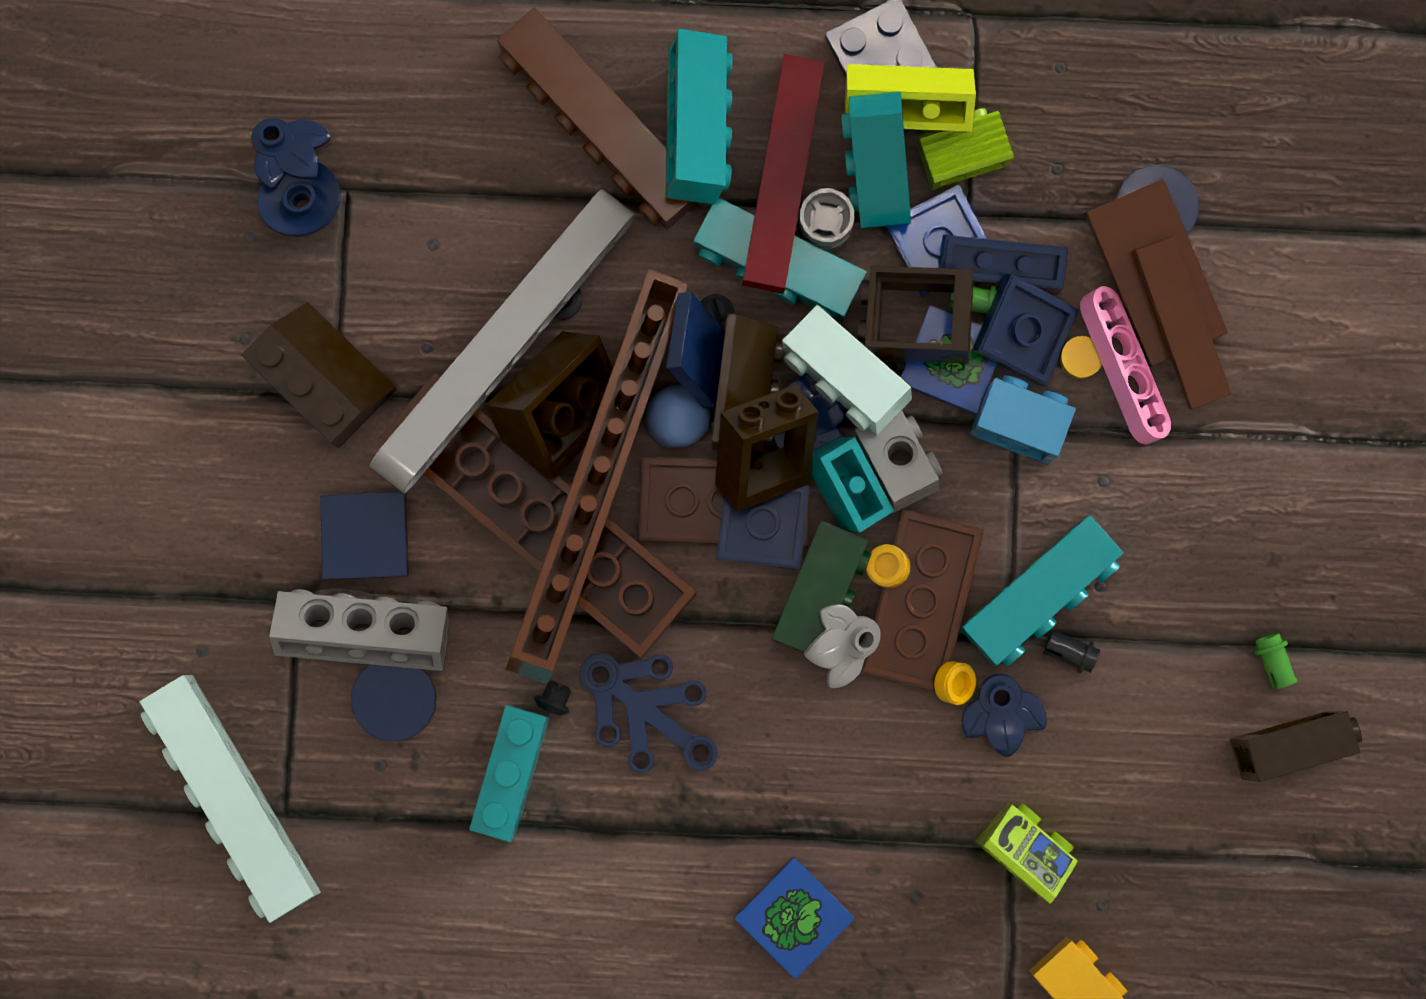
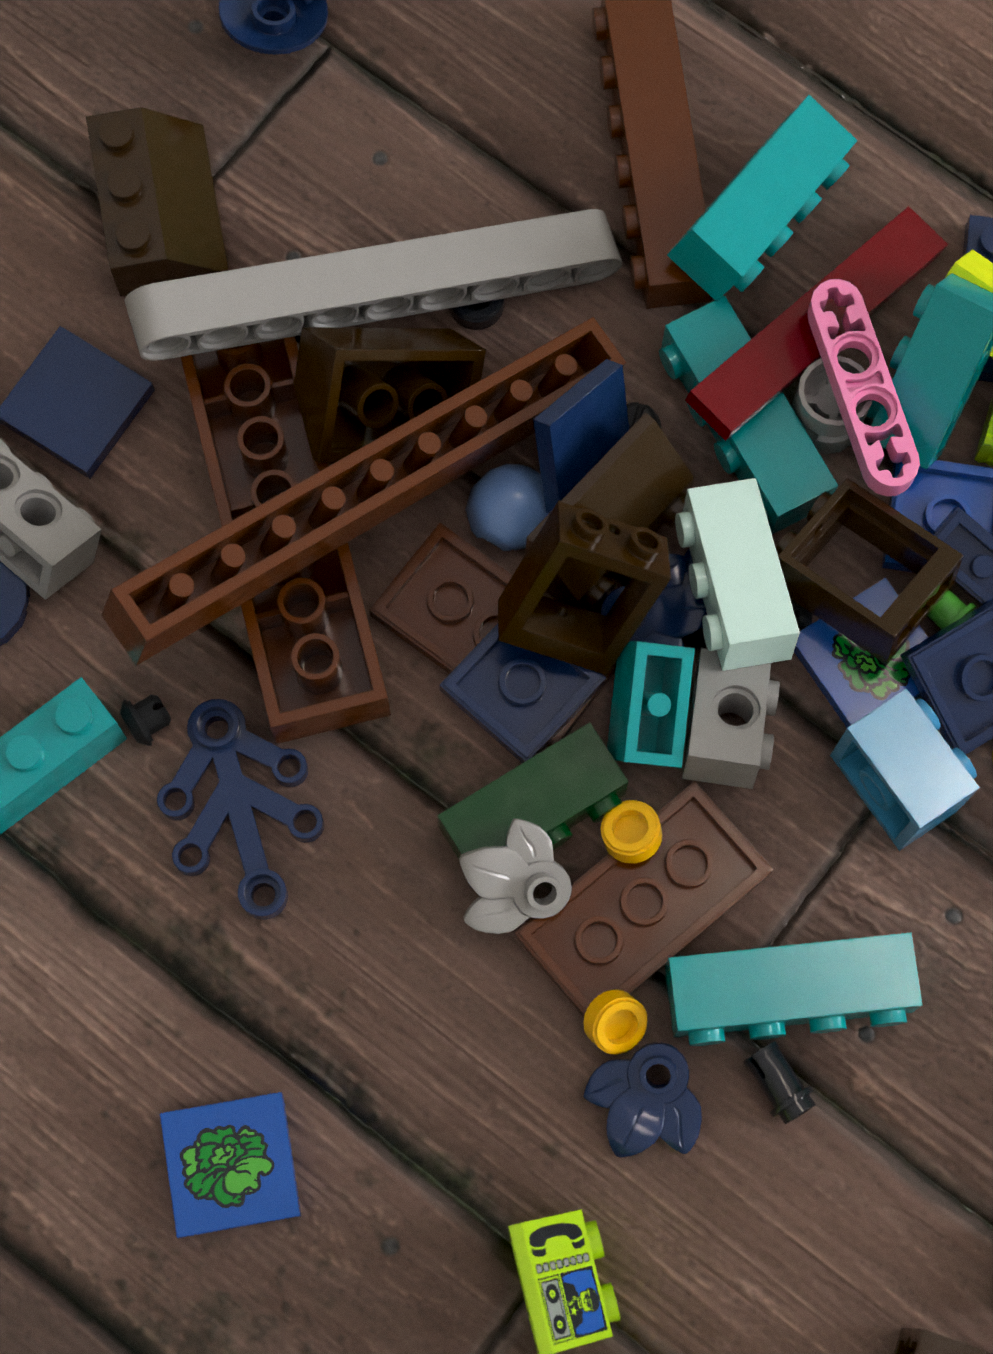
camera: 30 degrees right, 10 degrees down
(847, 198) = (869, 385): none -> bright pink beam

